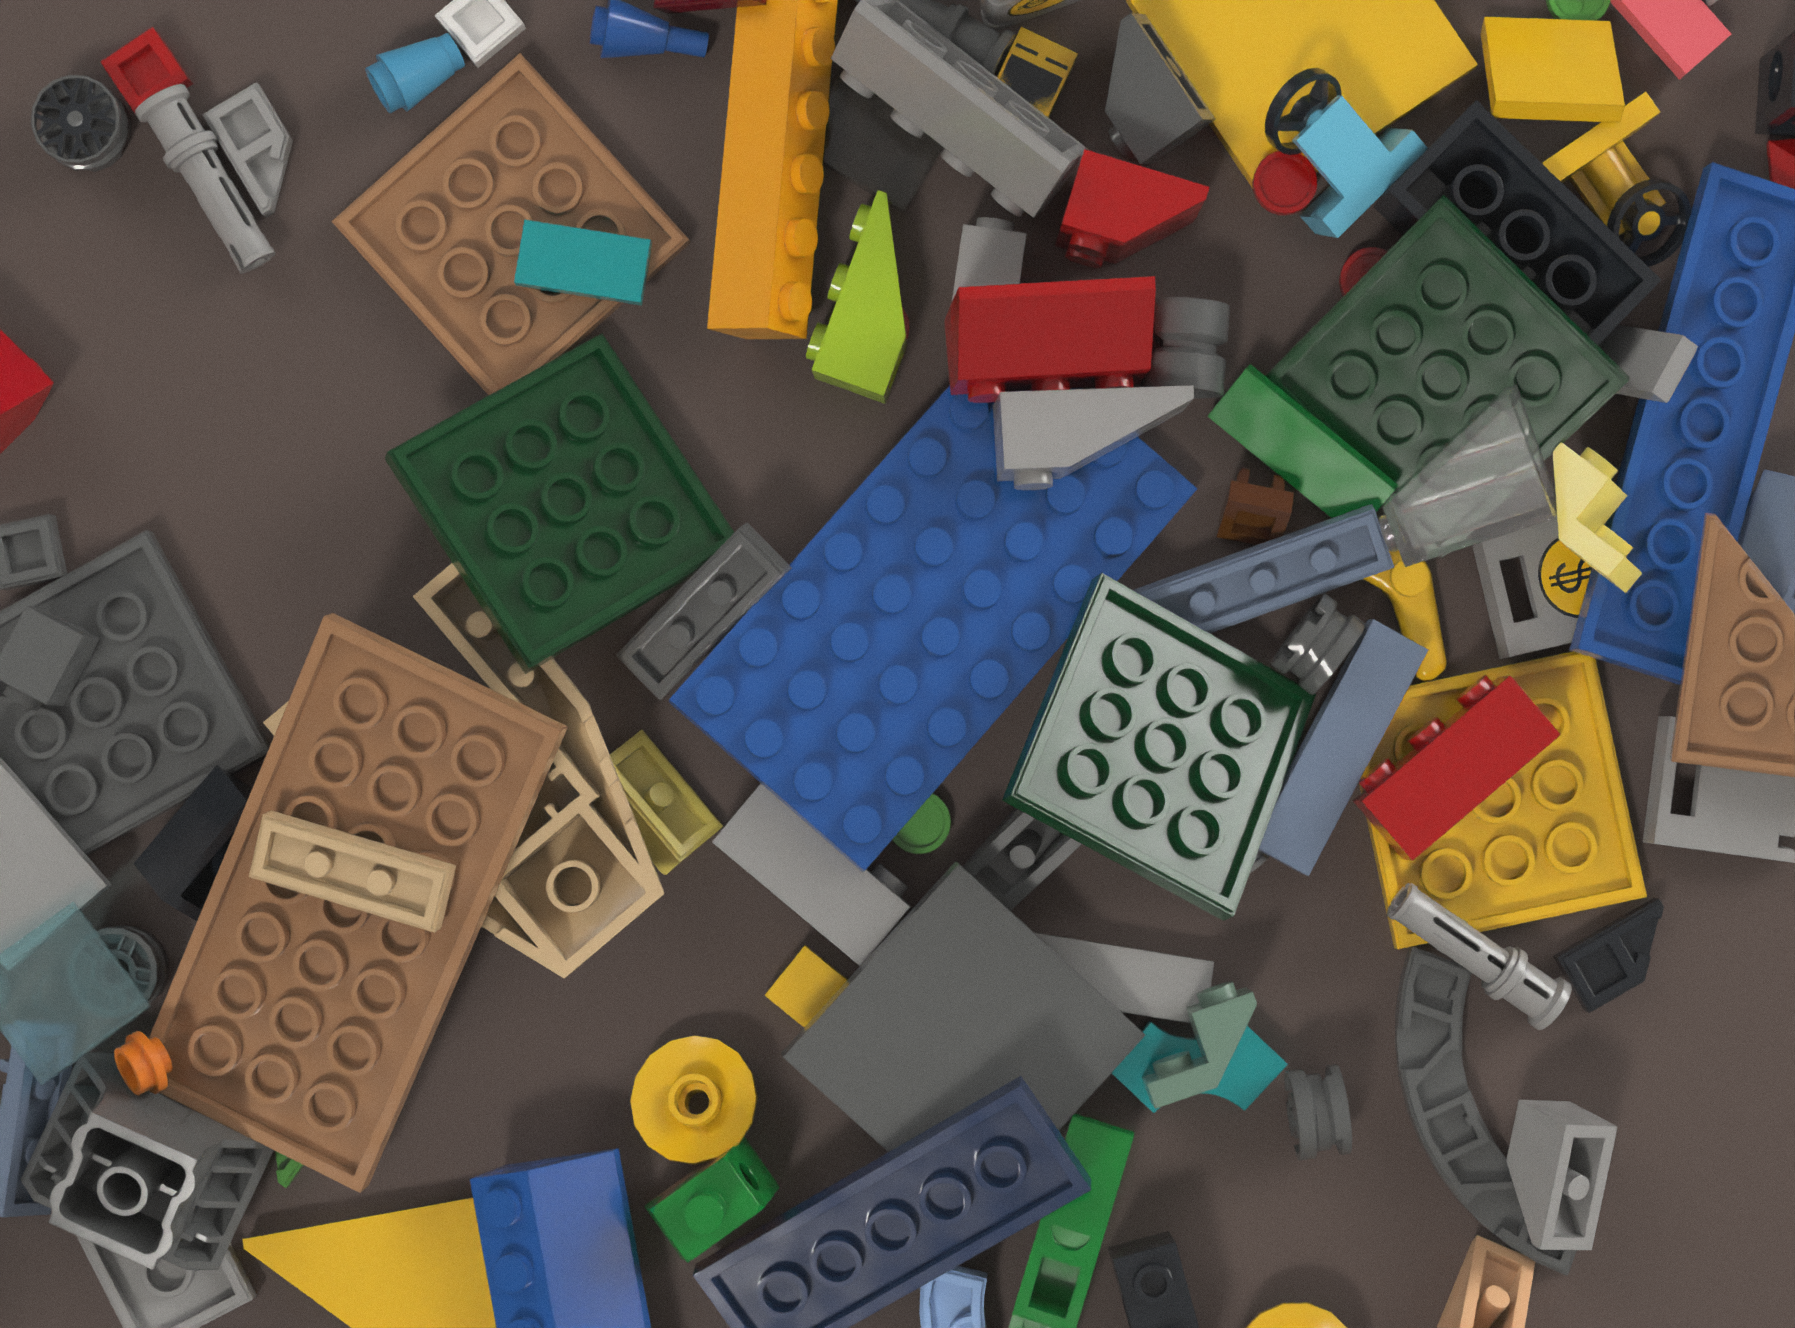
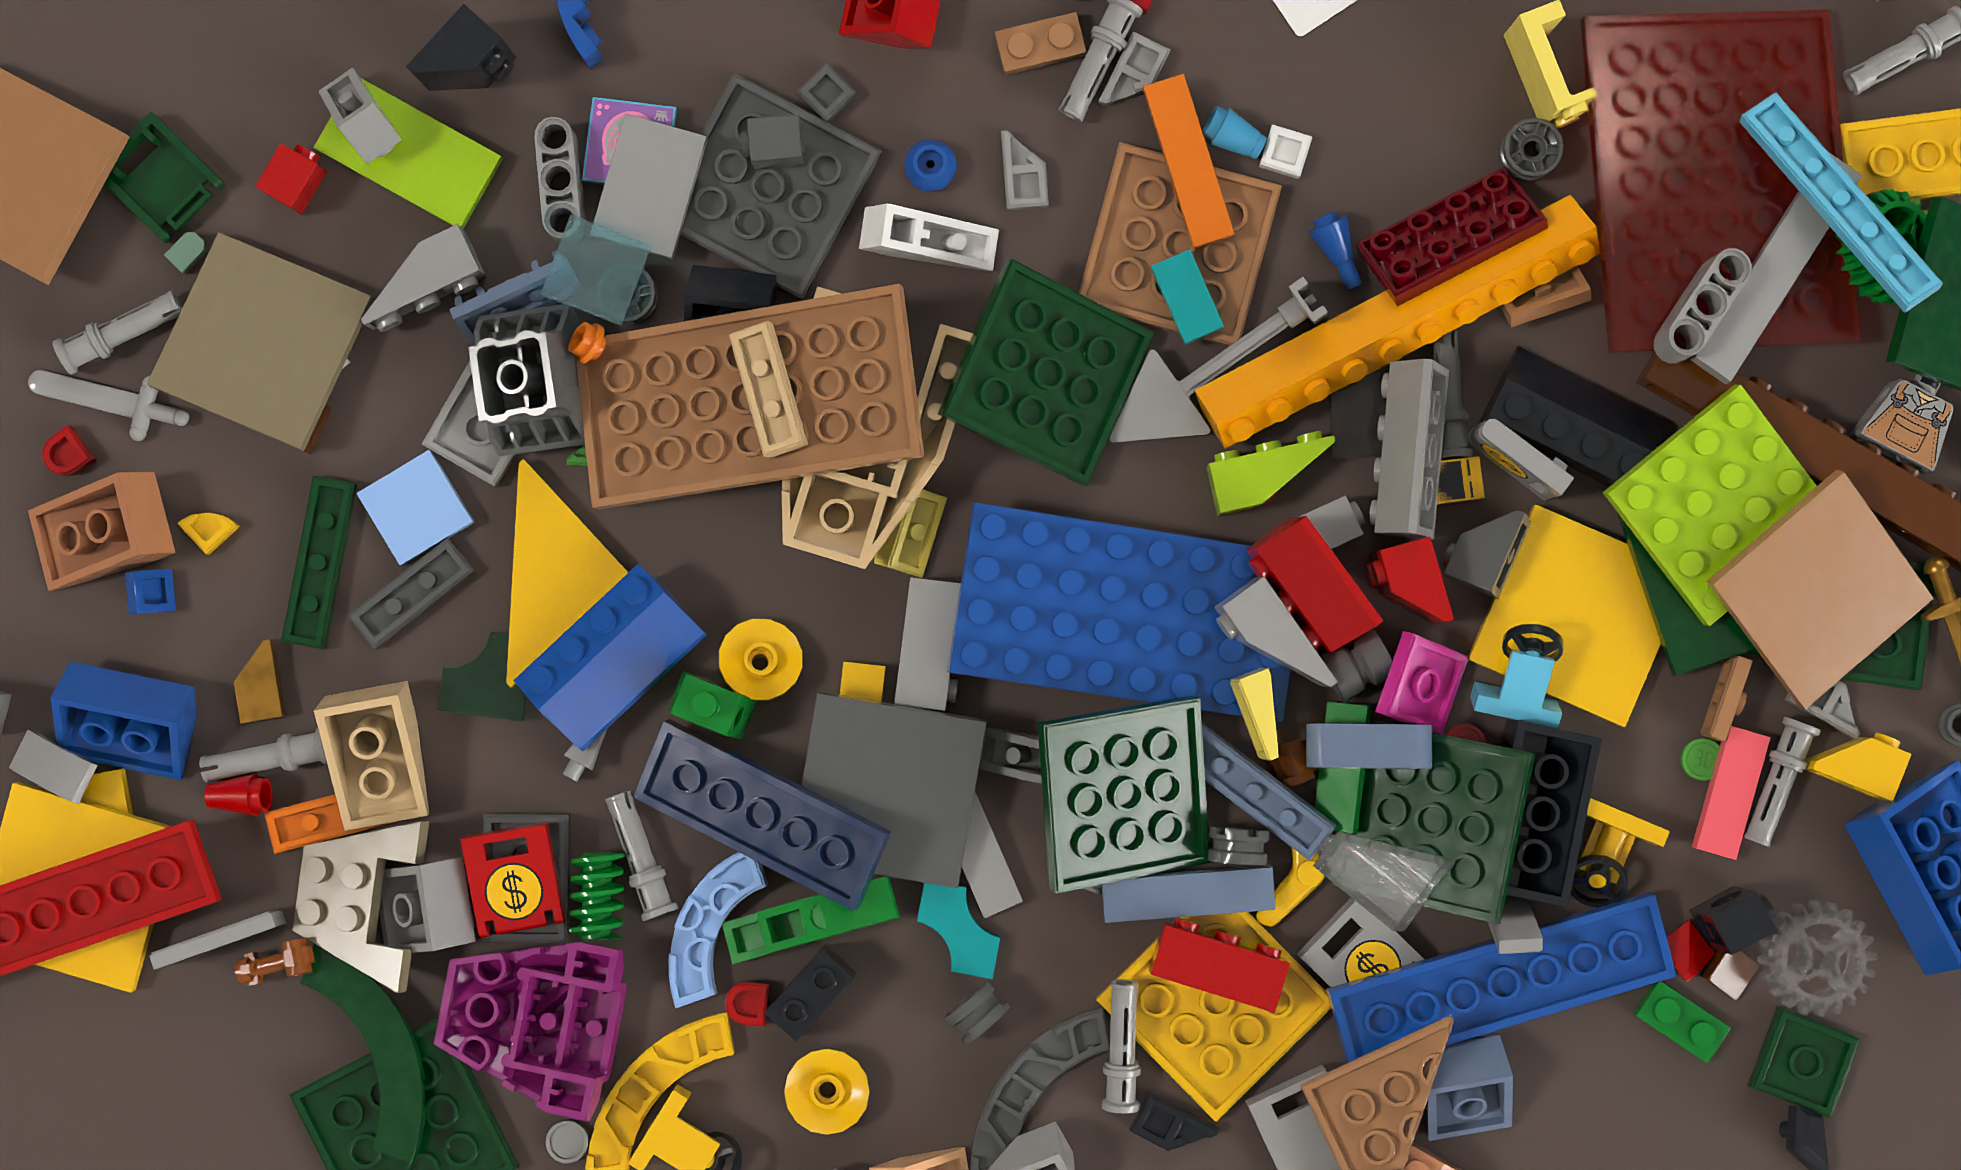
camera: 65 degrees right, 0 degrees up
(141, 241) = (1040, 43): none -> medium nougat plate
(225, 483) = (930, 178): none -> blue plate
(294, 542) = (927, 237): none -> white slope
(296, 370) = (1023, 176): none -> light grey tile
(412, 150) = (1188, 161): none -> orange tile
(699, 382) = (1162, 405): none -> light grey piece
(703, 611) = (1035, 489): dark grey tile -> none
(926, 828) = (993, 691): bright green piece -> none
(1157, 507) = (1256, 704): none -> light yellow slope
(1218, 1027) = (987, 926): sand green slope -> none
(1261, 282) = (1422, 682): none -> dark pink tile
(1284, 183) = (1486, 661): red piece -> none
(1299, 398) = (1369, 746): none -> sand blue beam
(1552, 69) = (1648, 770): yellow tile -> none
(1584, 504) = (1410, 944): light yellow slope -> none

